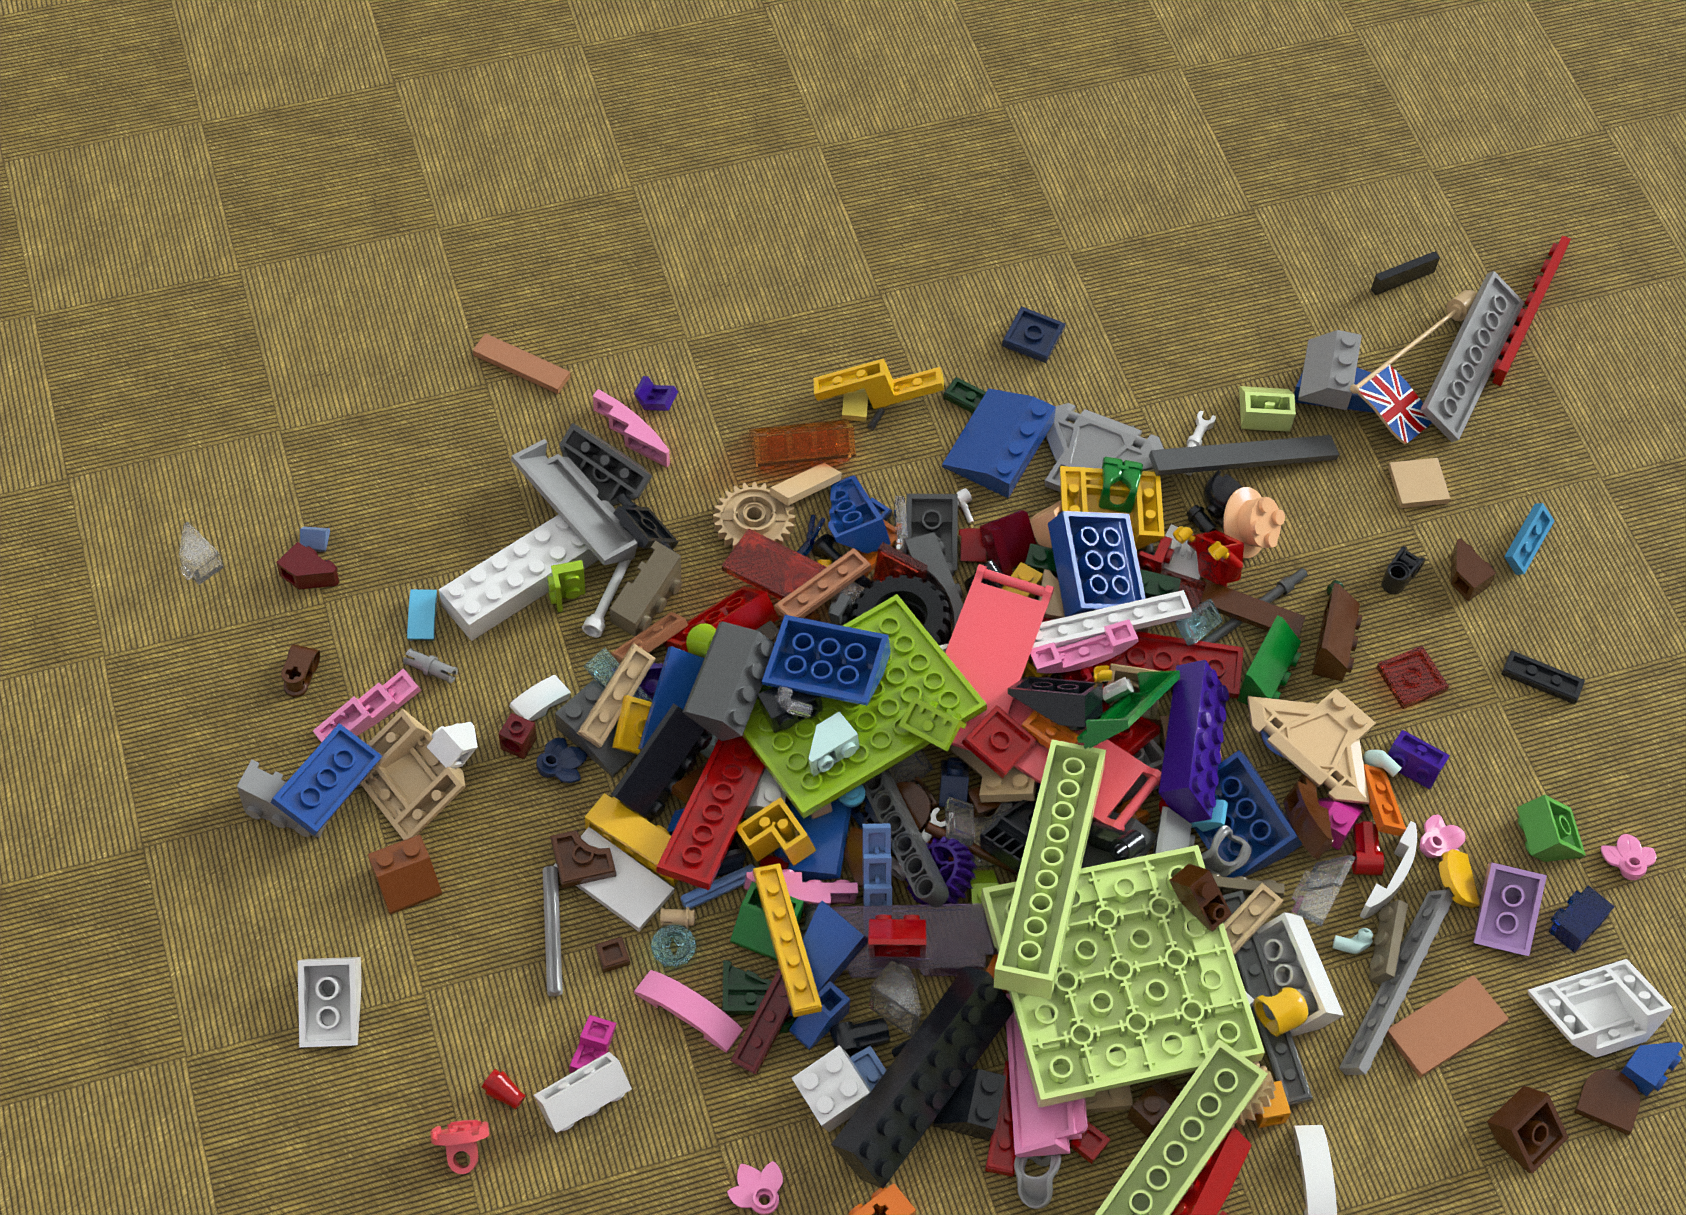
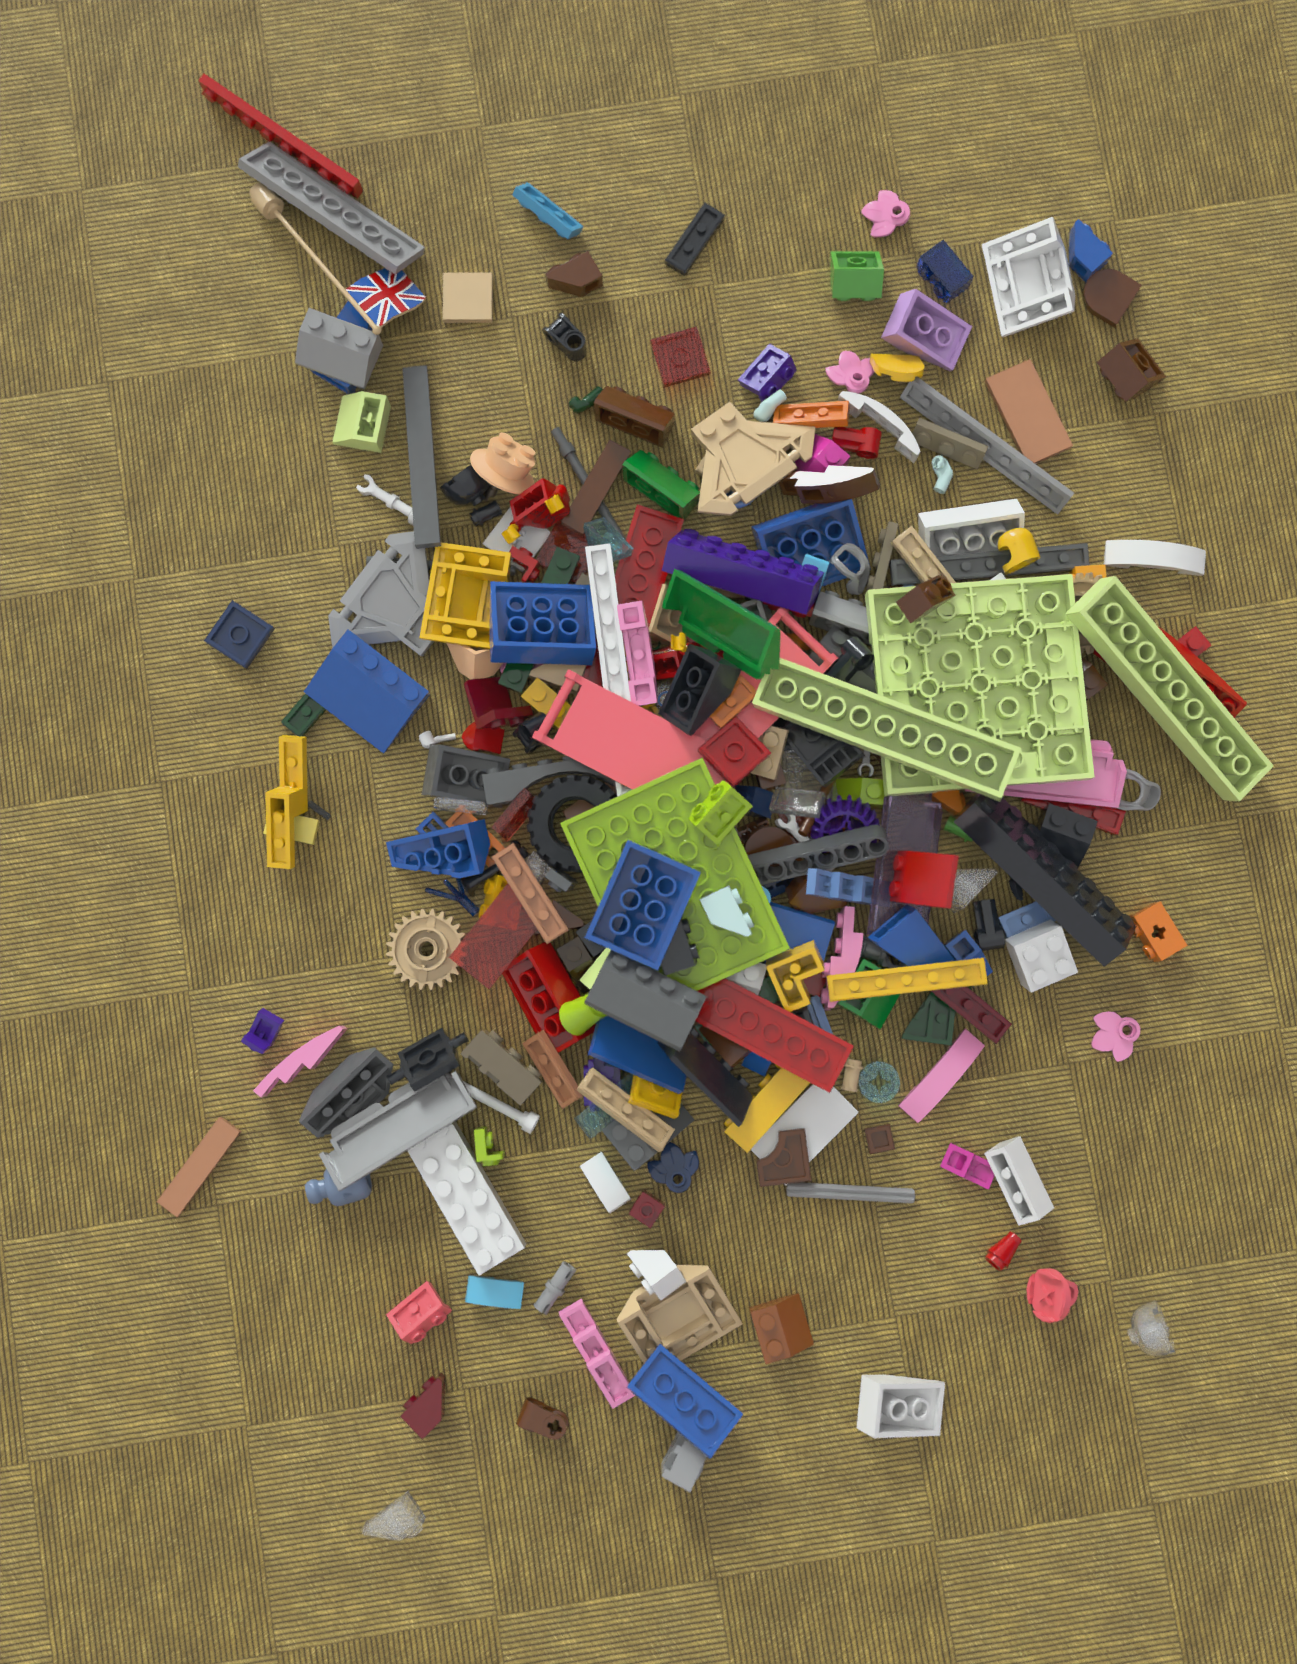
camera: 75 degrees left, 25 degrees up
(315, 538) = (387, 1396): medium blue slope -> none
(395, 552) = (418, 1313): none -> coral bracket
(511, 479) = (318, 1190): none -> sand blue piece
(791, 706) = (687, 947): clear arm -> none
(802, 443) = (341, 889): clear orange slope -> none
(805, 484) = (396, 892): tan tile -> none
(1091, 1144) = (1108, 734): red plate -> none
(1117, 470) = (433, 581): green piece -> none
(1117, 690) = (687, 625): white slope -> none
(1320, 888) = (900, 488): clear slope -> none
(1405, 273) = (217, 248): black tile -> none

